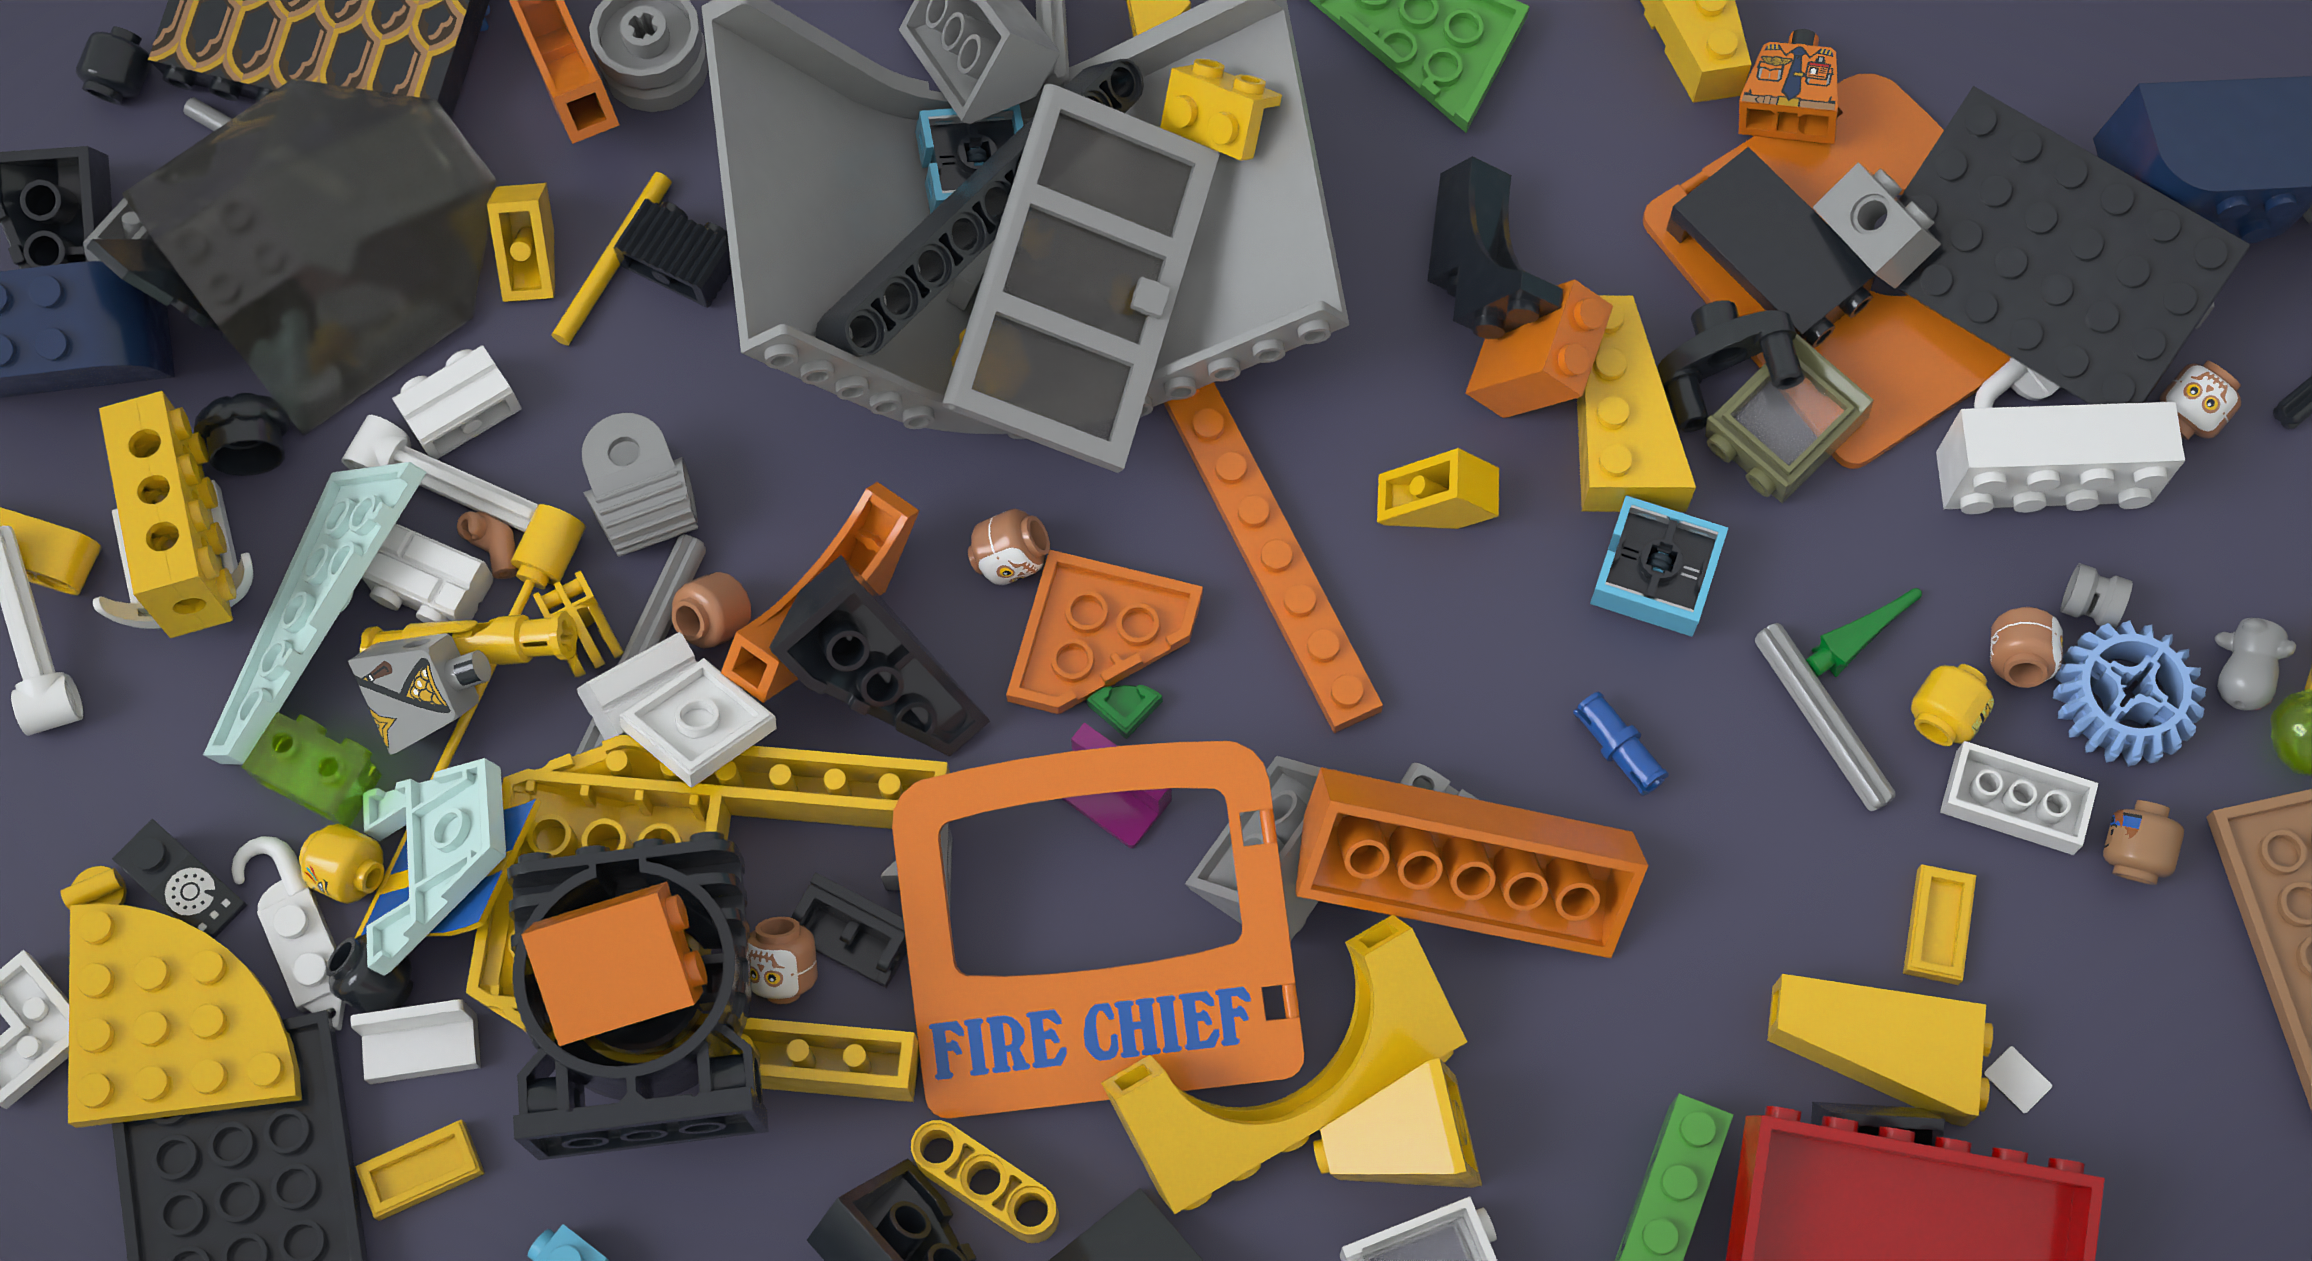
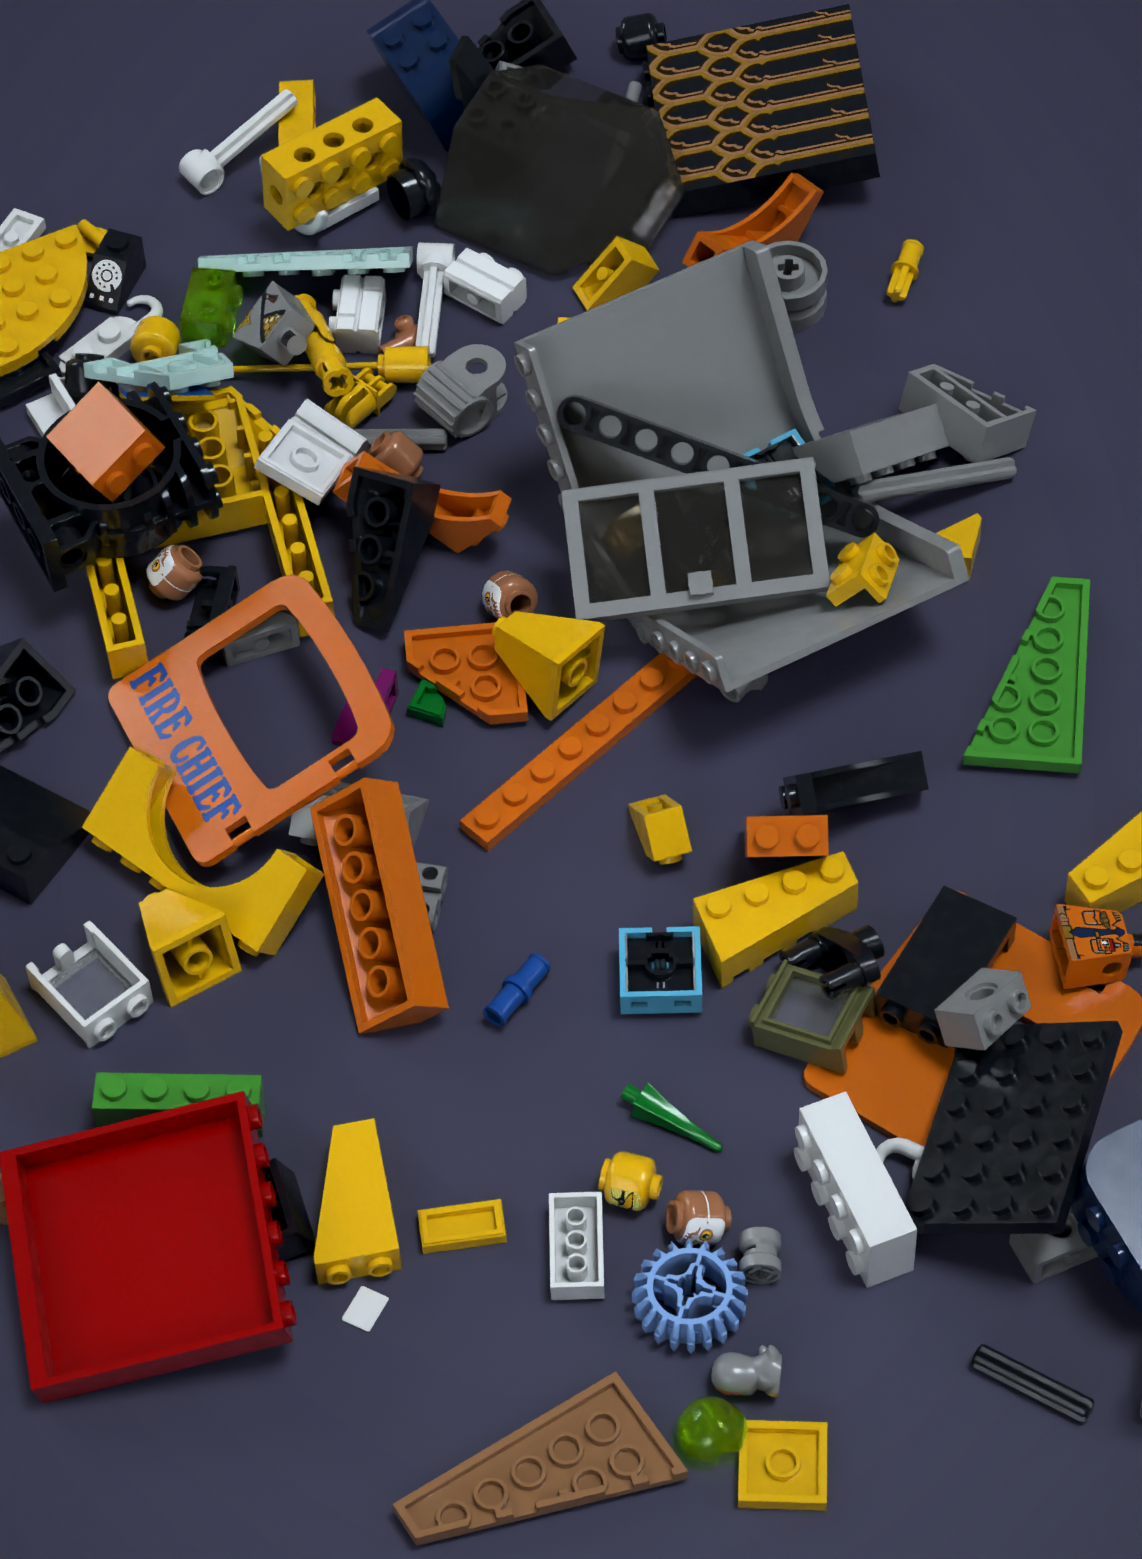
camera: 70 degrees right, 15 degrees down
(968, 1159) = (70, 728): yellow beam -> none
(1143, 527) = (550, 656): none -> yellow slope
(1825, 717) = (591, 1111): light grey axle -> none
(2143, 843) = (571, 1332): medium nougat head -> none
(2203, 398) = (957, 1285): head -> none

